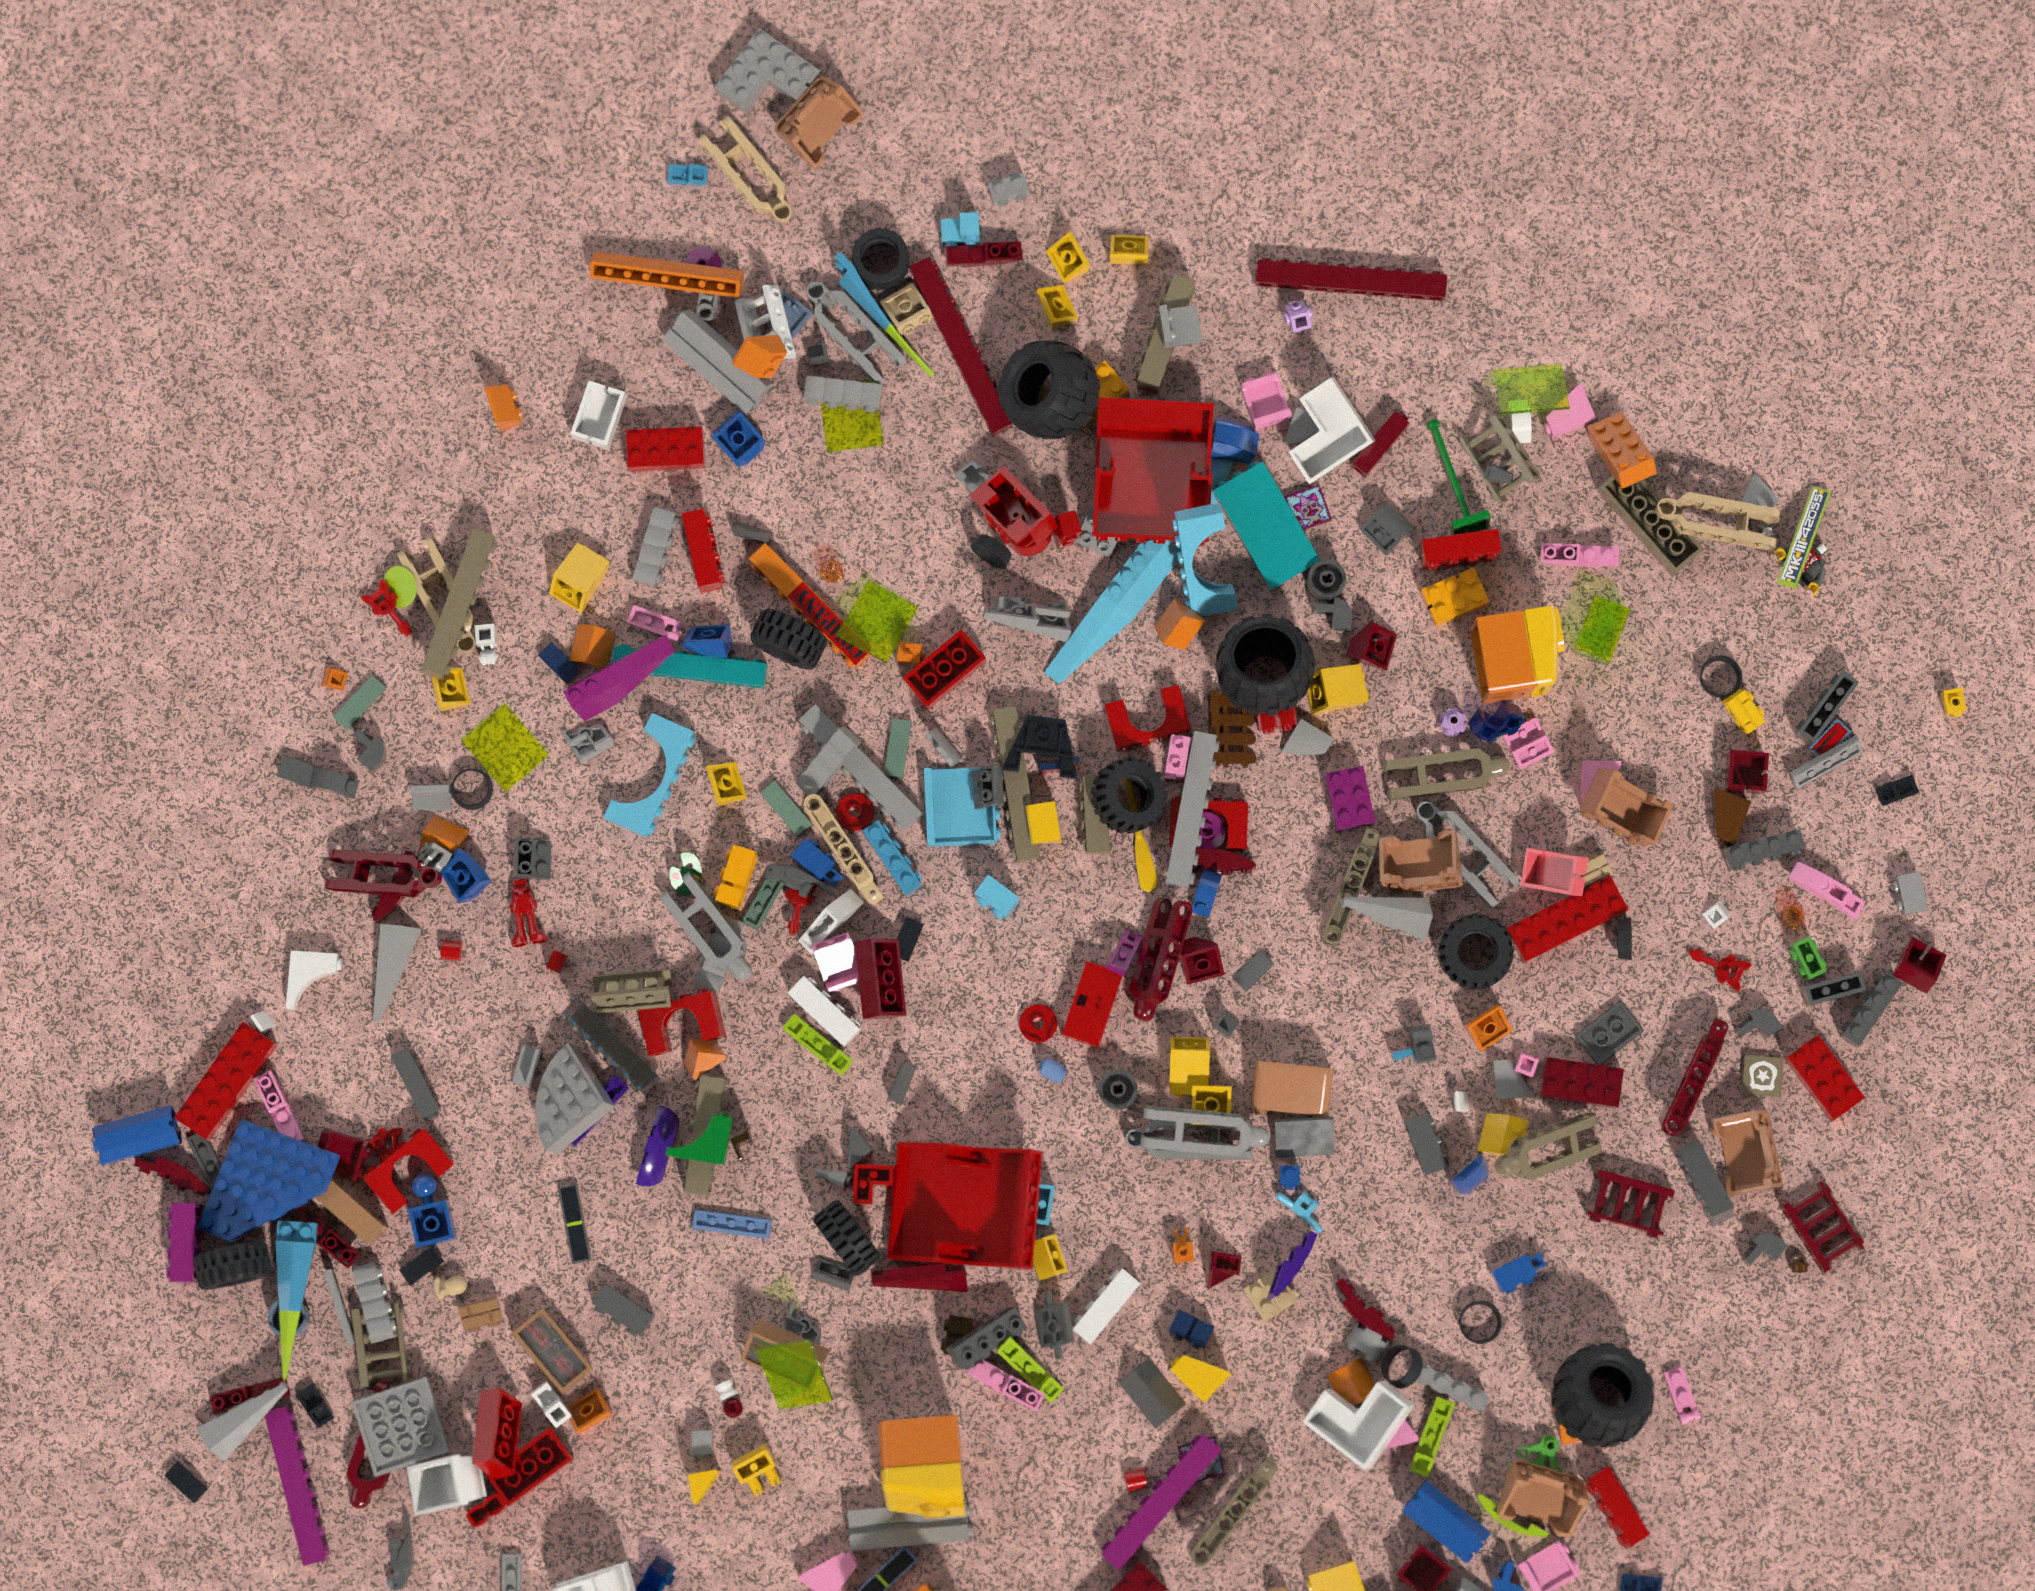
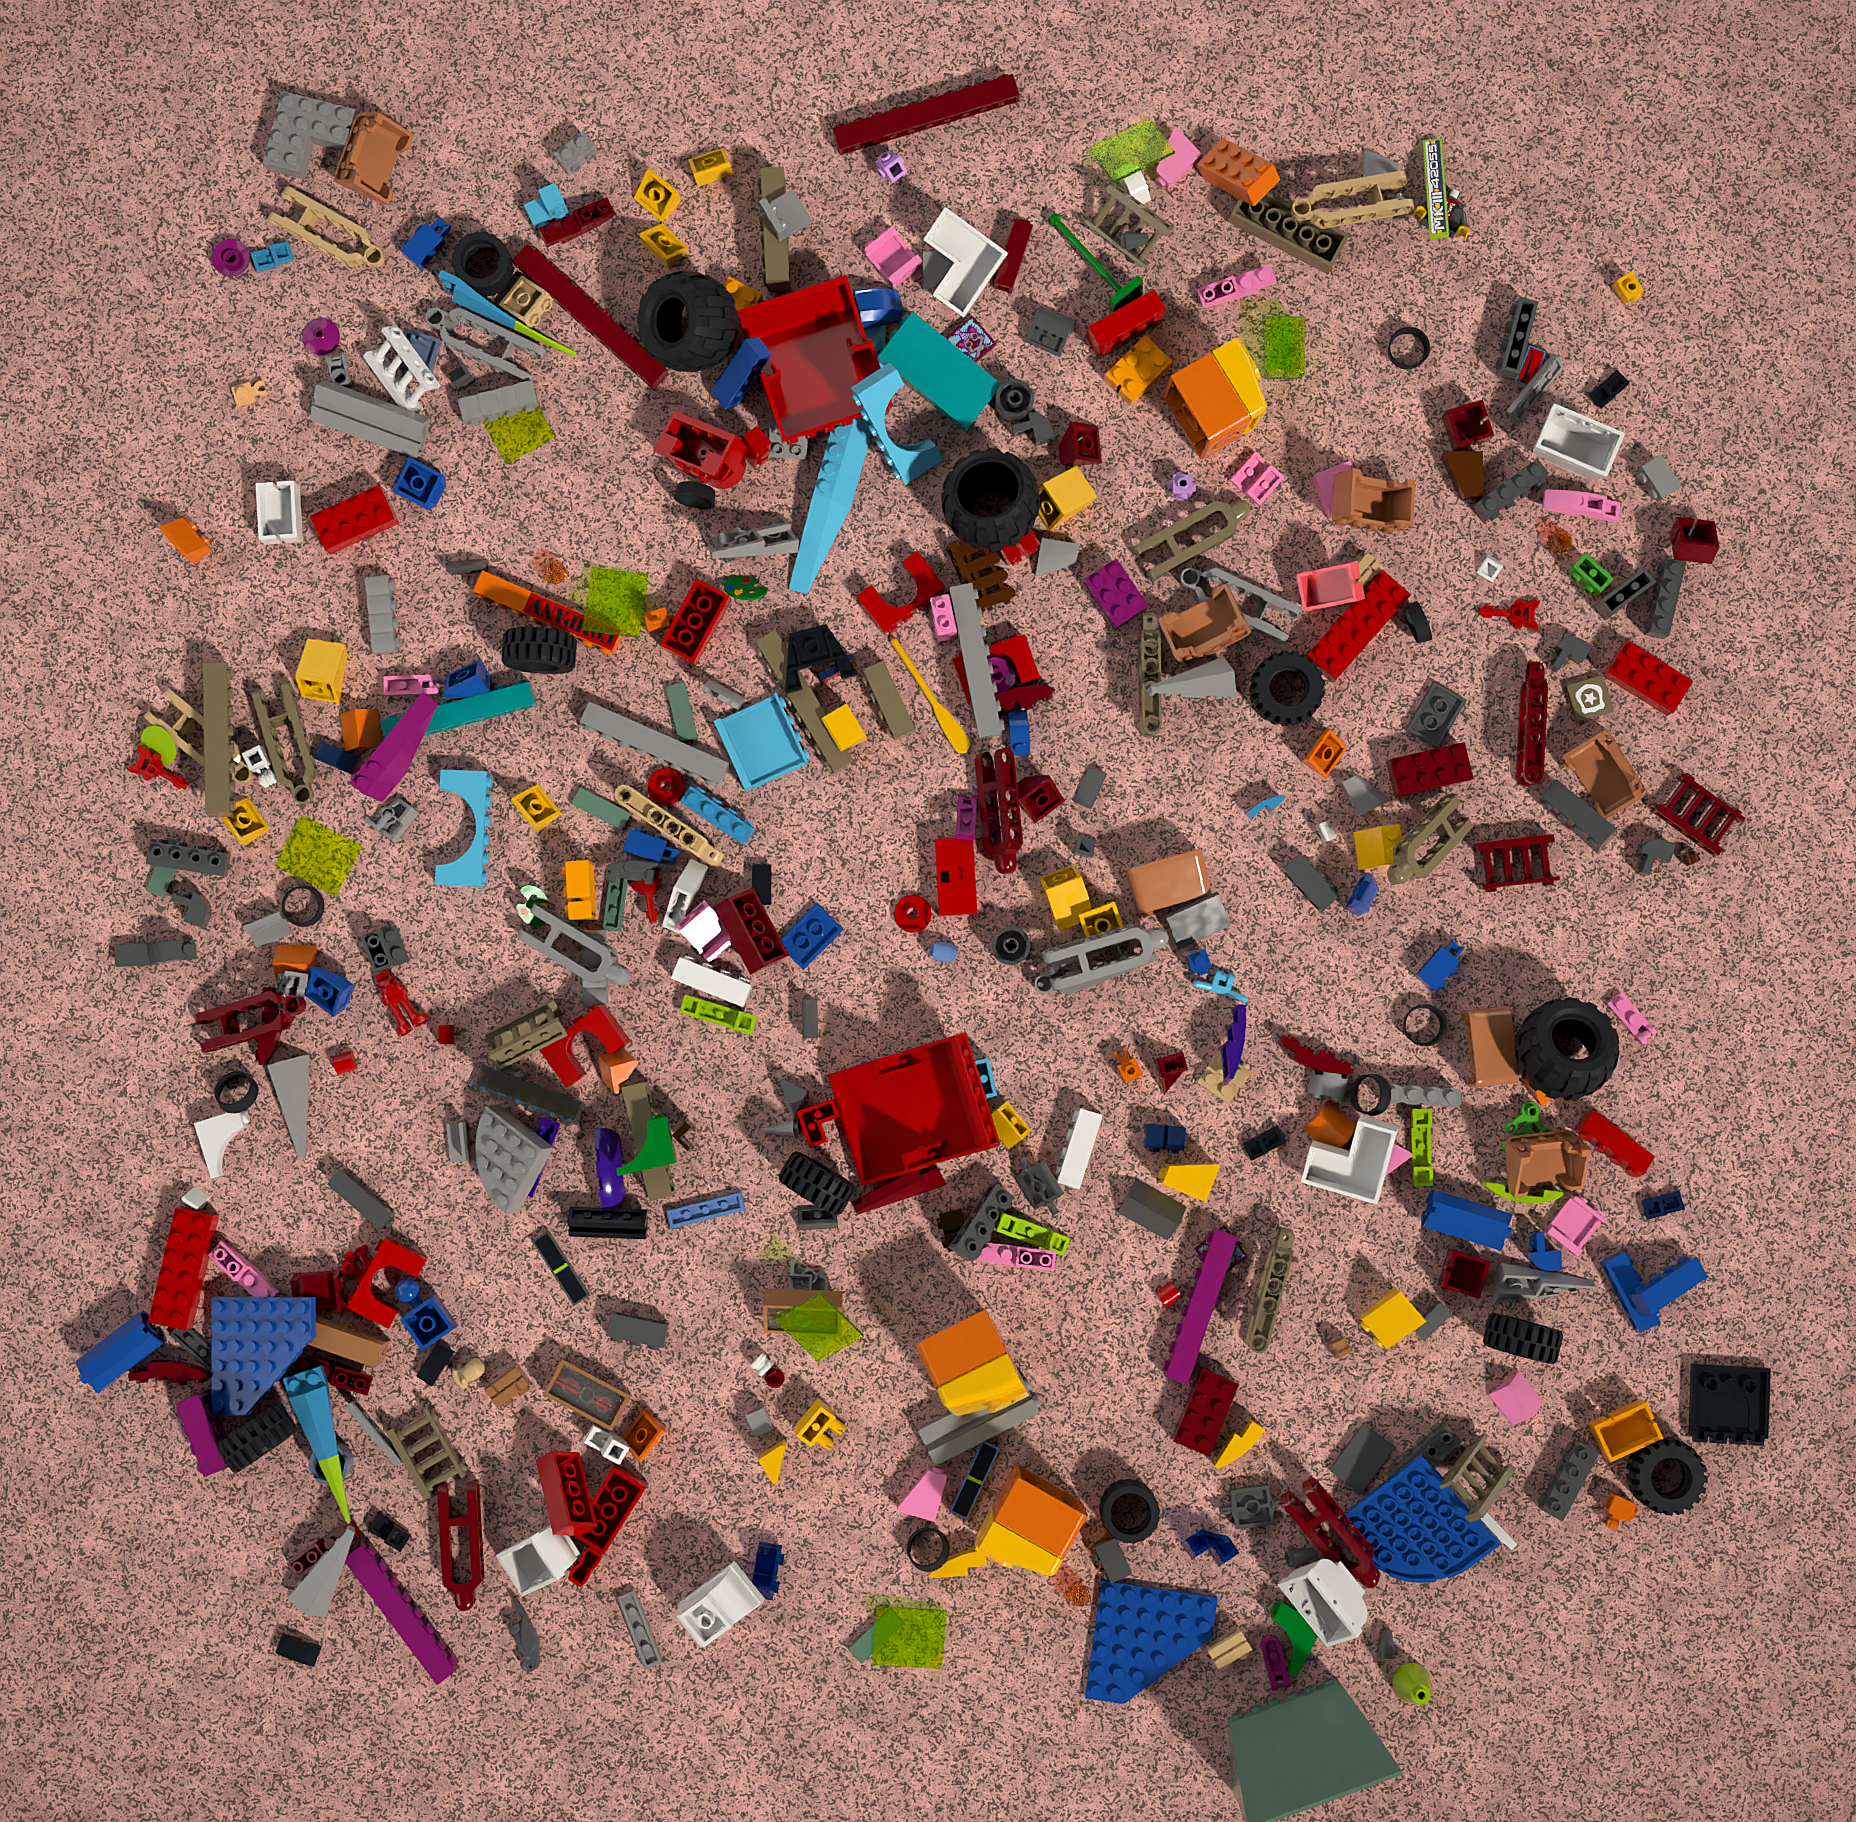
camera: 25 degrees left, 5 degrees up
(334, 678) = (133, 854): orange slope -> none
(341, 951) = (242, 1104): none -> black tyre
(373, 1302) = (403, 1417): light grey brick -> none
(385, 703) = (187, 858): none -> dark grey brick
(401, 1426) = (475, 1521): light grey tile -> none
(515, 677) = (301, 787): none -> dark tan piece
(611, 292) = (246, 393): none -> light nougat plate
(636, 1198) = (607, 1222): none -> black brick
(648, 152) = (224, 252): none -> magenta dish
(667, 274) = (289, 356): orange brick -> none
(701, 547) = (426, 600): red brick -> none
(760, 355) = (405, 395): orange slope -> none
(828, 761) = (622, 749): light grey brick -> none
(834, 218) = (425, 243): none -> blue brick
(934, 1006) = (810, 936): none -> blue tile
(972, 476) = (649, 433): light grey cylinder -> none
(988, 787) = (779, 715): dark grey brick -> none
(996, 897) = (828, 813): medium azure brick -> none
(1000, 652) = (741, 586): none -> green piece
(1079, 455) = (741, 372): none -> blue brick
(1150, 788) = (928, 655): black tyre -> none
(1178, 625) = (895, 496): orange slope -> none
(1284, 1373) = (1264, 1142): none -> black slope
(1422, 1043) = (1270, 789): dark grey brick -> none
(1504, 721) = (1228, 466): clear blue brick -> none
(1526, 1064) = (1372, 773): bright pink slope -> none
(1535, 1366) = (1491, 1046): none -> nougat windscreen
(1744, 711) = (1442, 370): yellow brick -> none
(1842, 829) = (1577, 443): none -> white container

